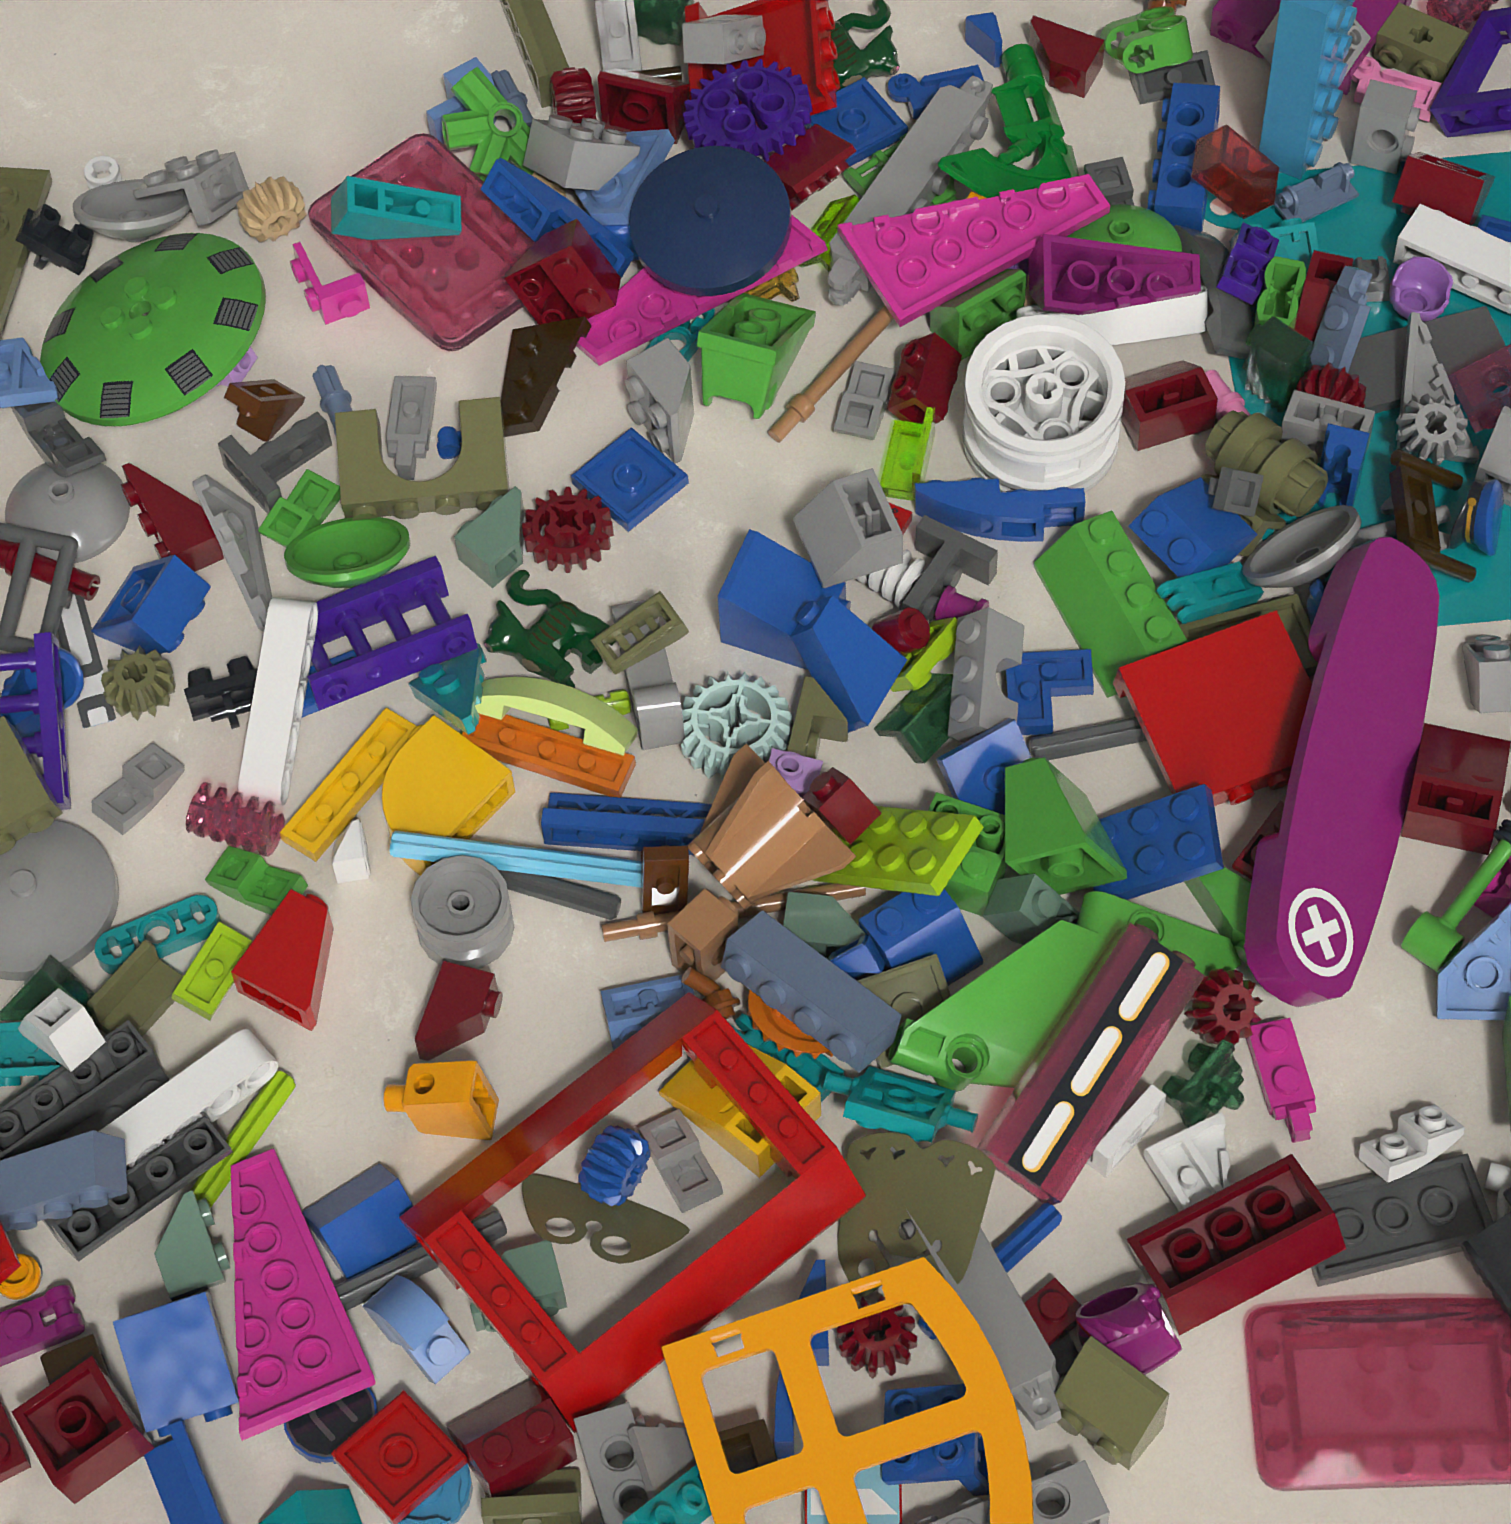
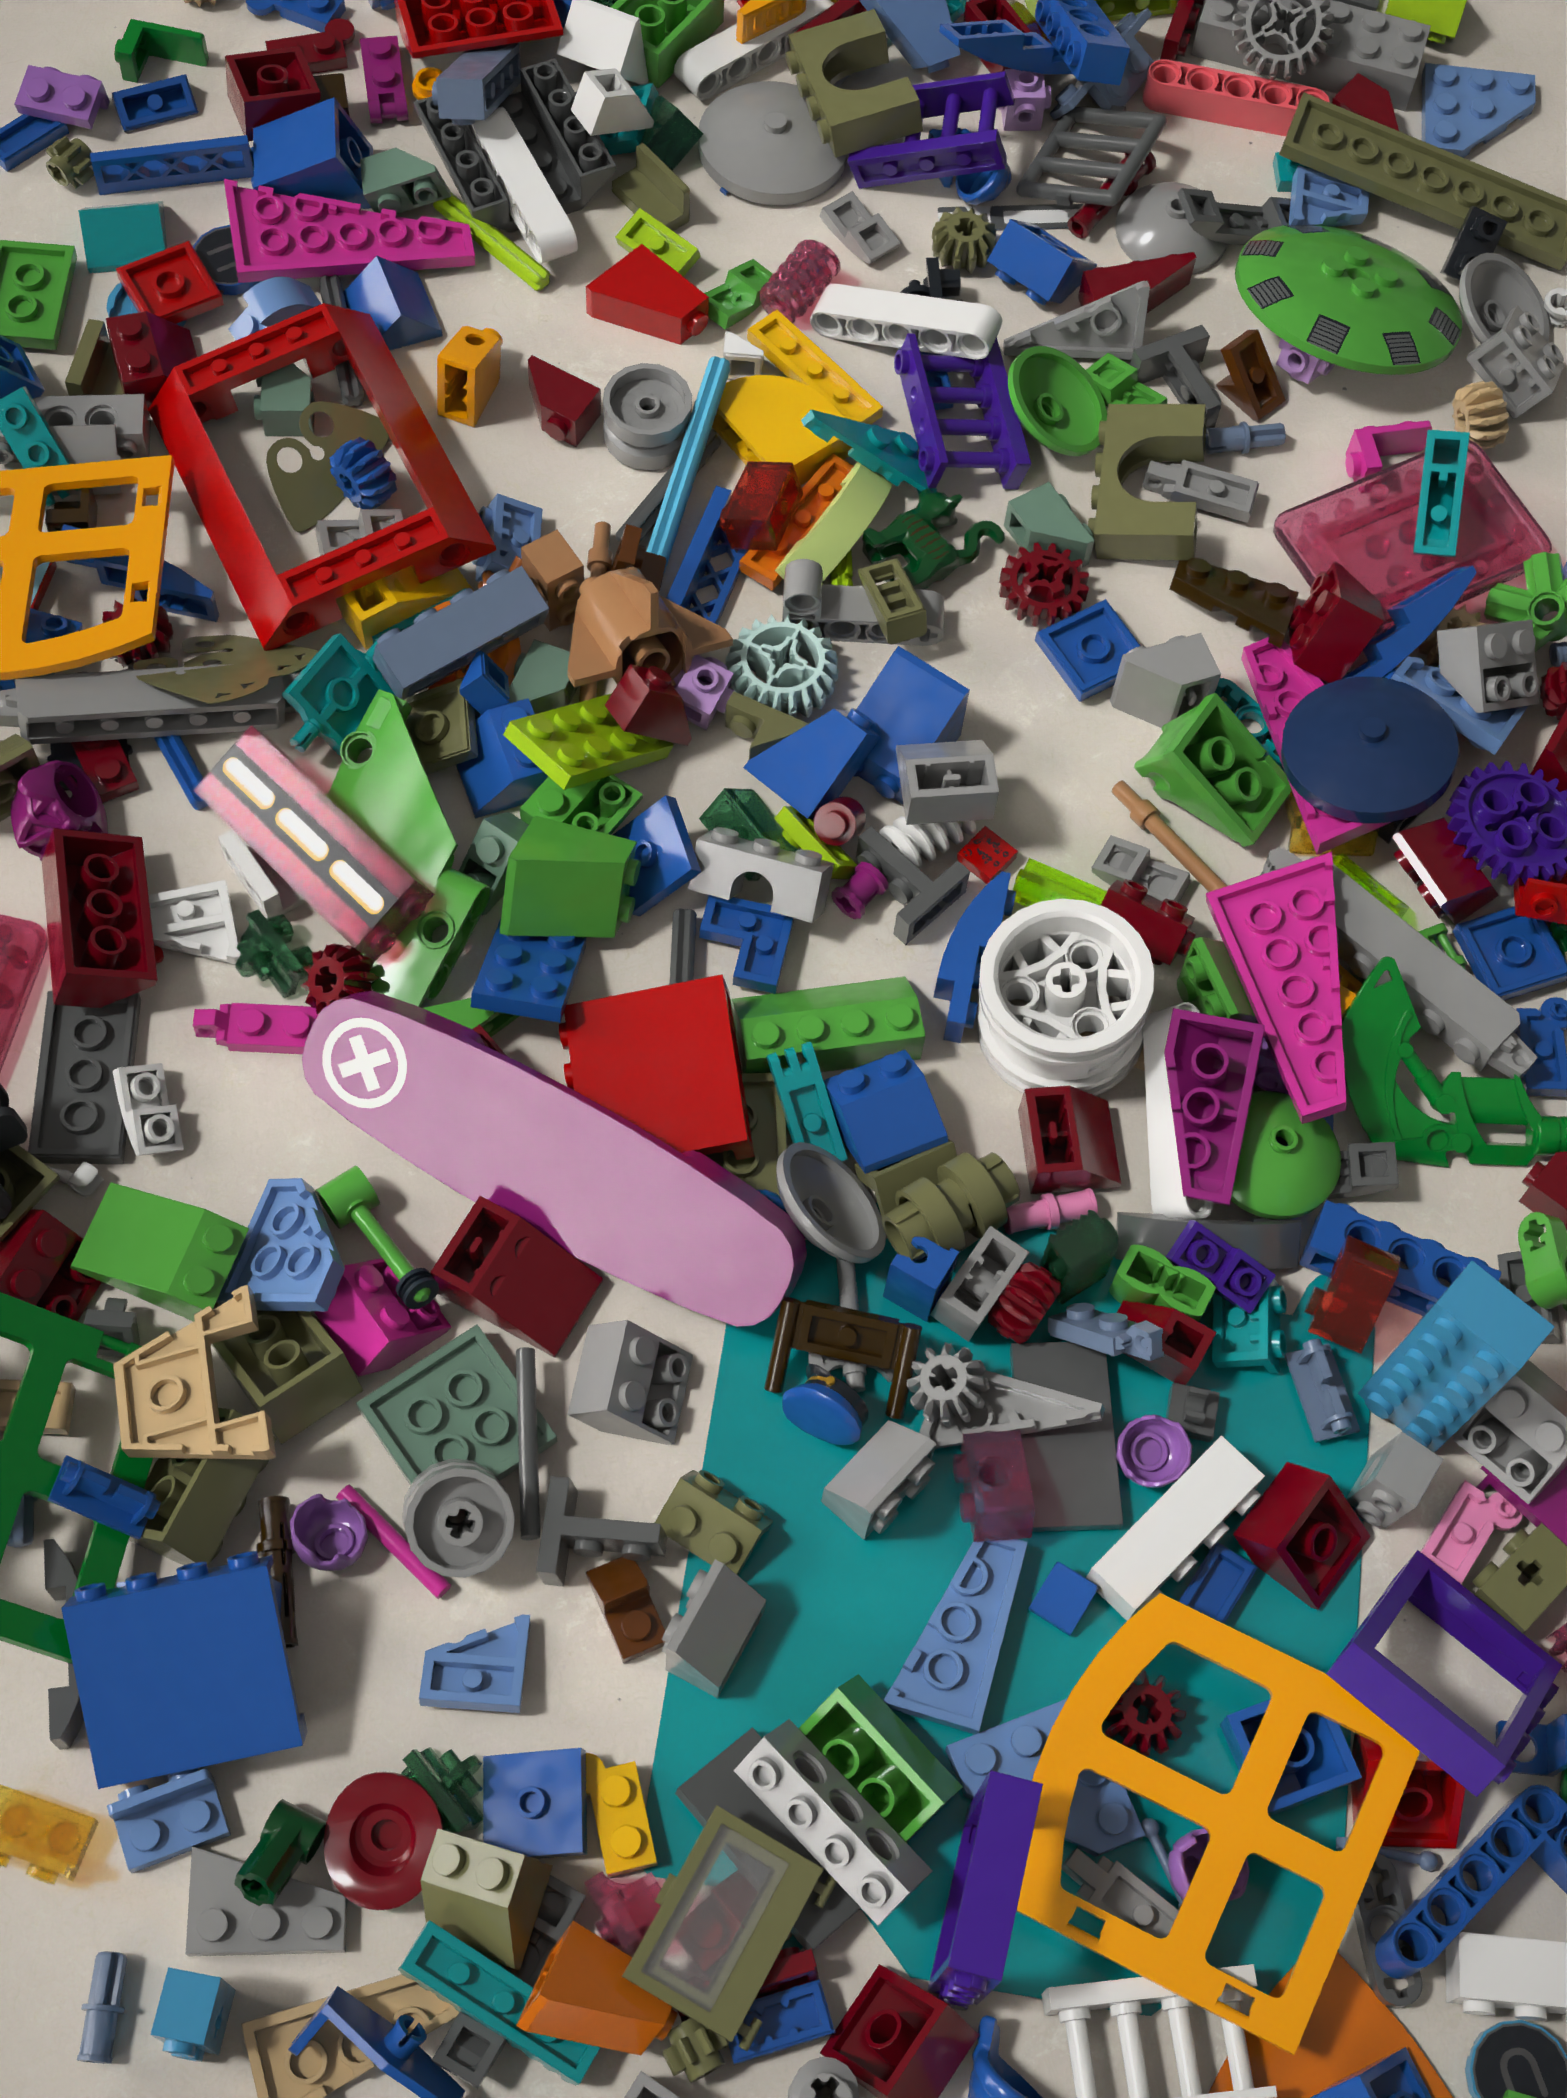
camera: 95 degrees right, 5 degrees up
(165, 917) = (705, 233): teal beam -> none
(555, 776) = (761, 506): none -> clear red brick
(1236, 491) = (905, 1147): dark grey tile -> none

